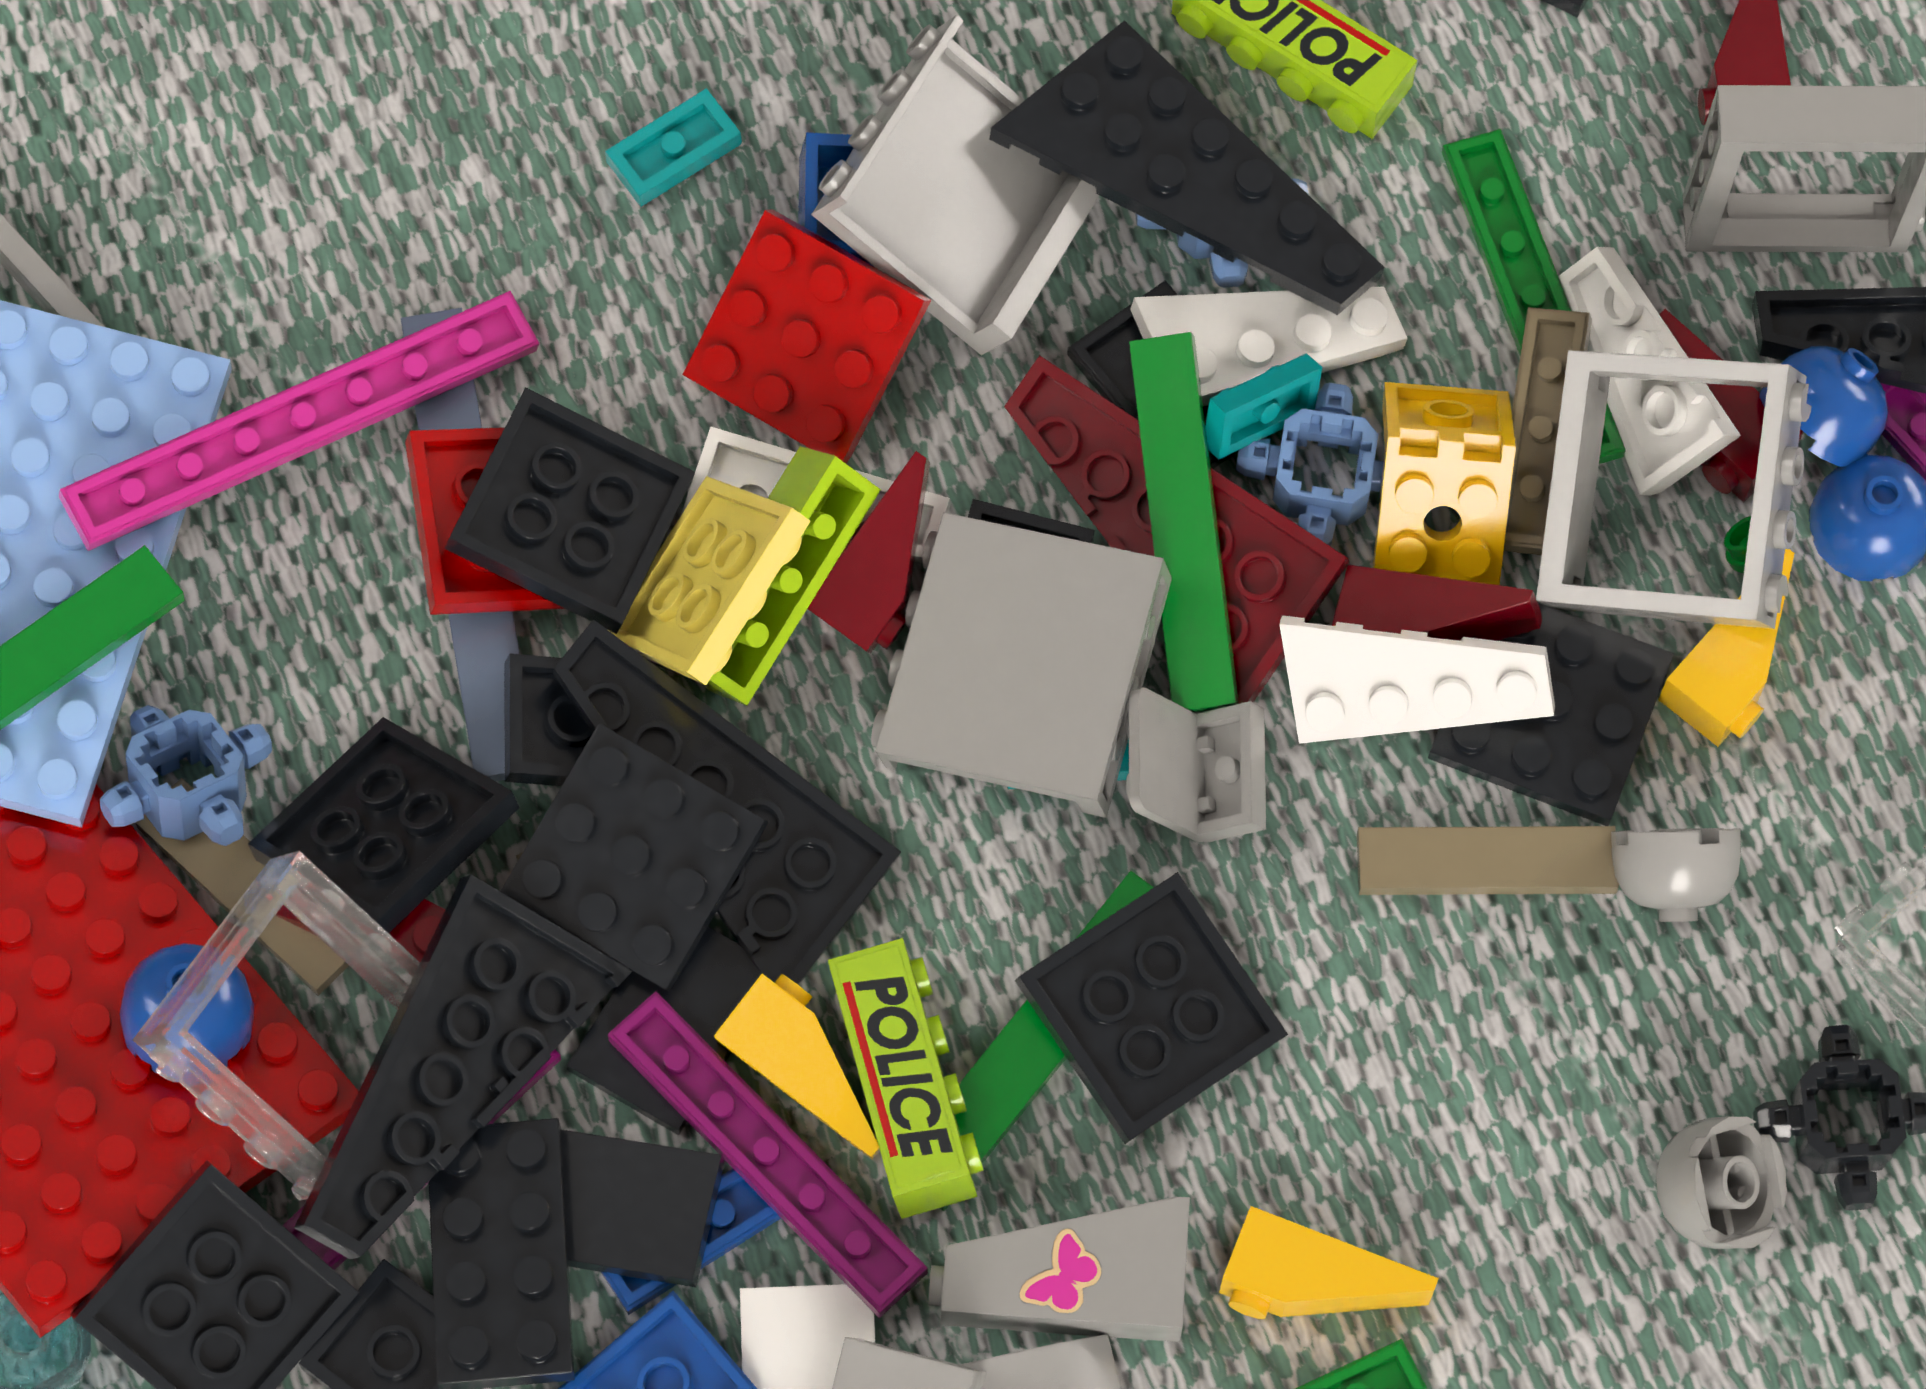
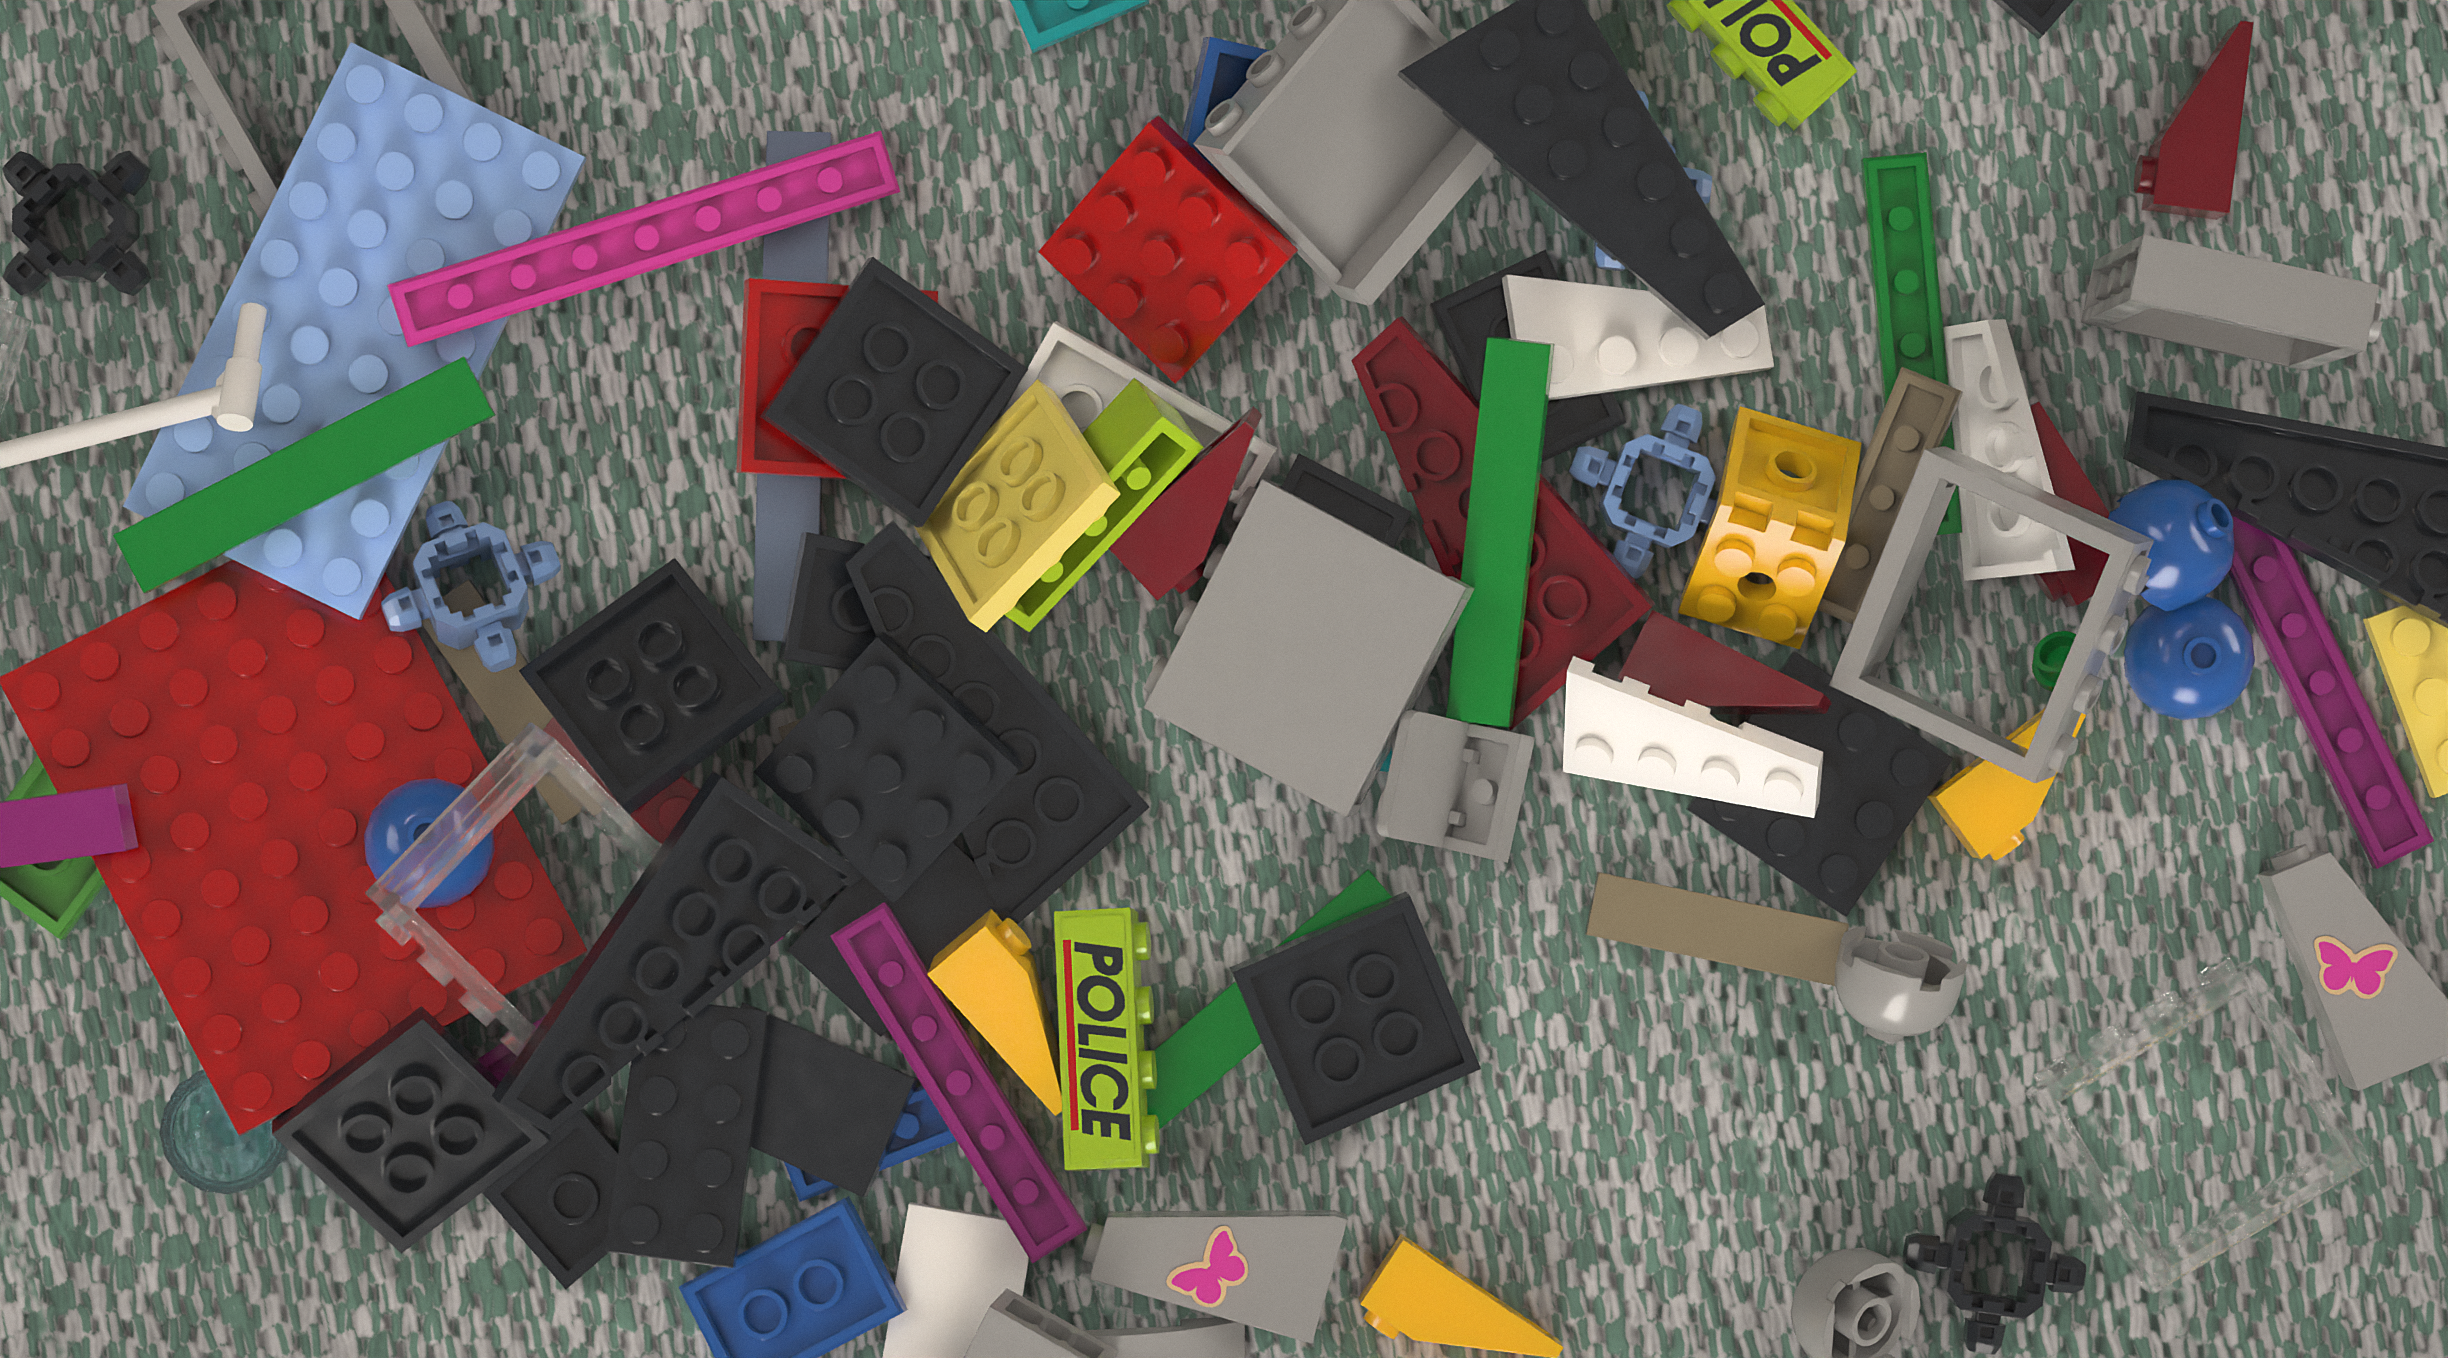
camera: 15 degrees right, 20 degrees up
(1261, 405) = (1622, 417): teal plate -> none

